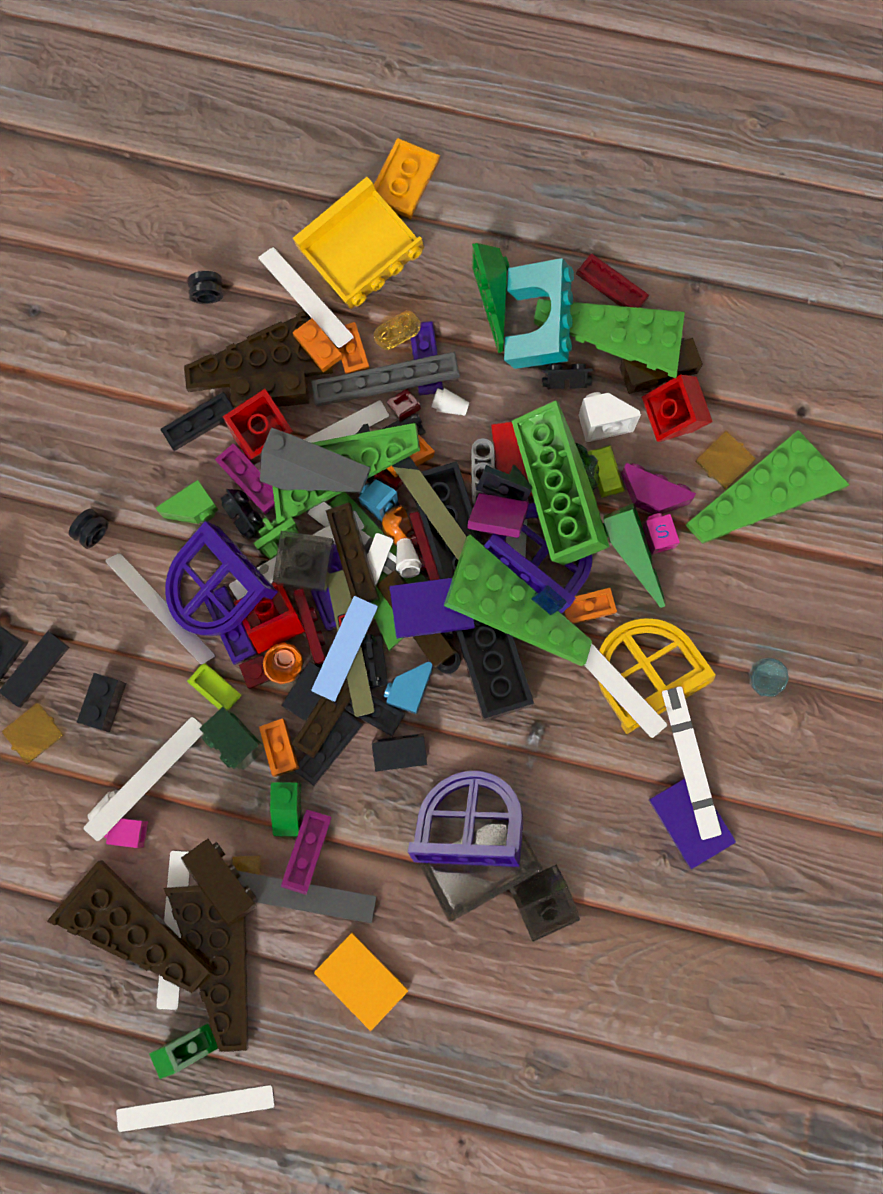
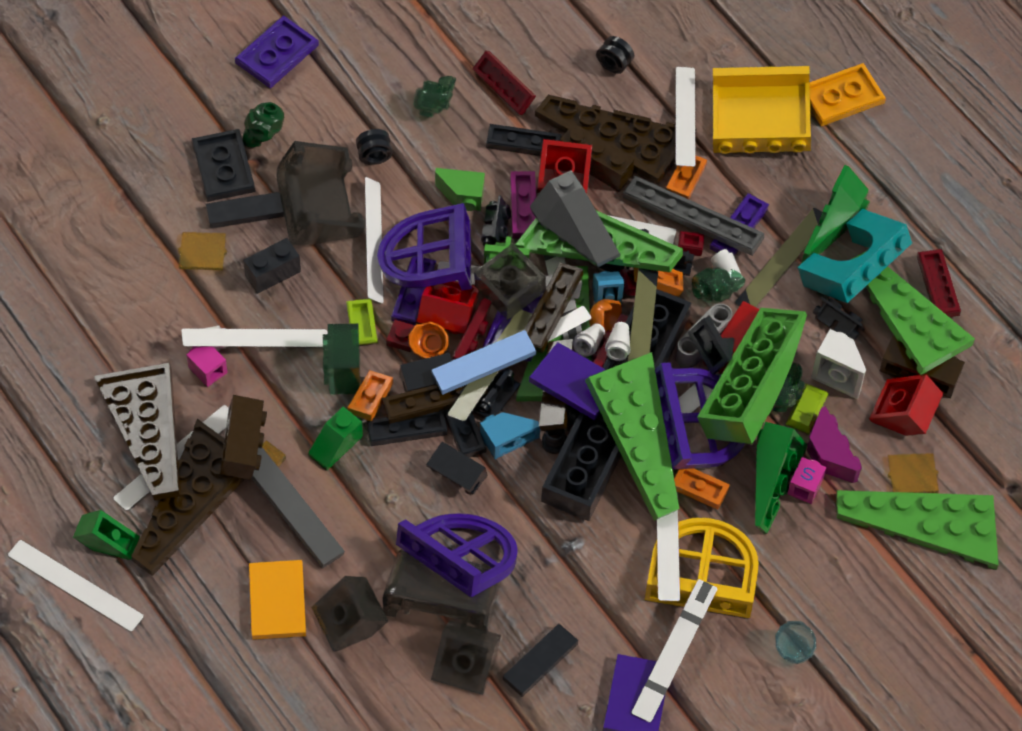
camera: 35 degrees right, 20 degrees down
(81, 609) = (315, 194): none -> clear smoke windscreen
(96, 442) = (434, 96): none -> clear green head
(139, 383) = (504, 82): none -> dark red plate
(306, 852) = (323, 476): magenta plate -> none
(317, 345) = (662, 152): orange plate -> none
(396, 331) = (734, 189): clear yellow plate -> none
(428, 946) = (349, 612): none -> clear smoke slope
(436, 546) = (619, 342): none -> white cone
(454, 425) = (716, 284): none -> clear green head
(480, 360) = (781, 260): none -> olive sticker
(498, 515) = (686, 357): magenta tile -> none
(549, 600) = (669, 444): clear blue tile -> none
(597, 853) = (540, 660): none -> black tile

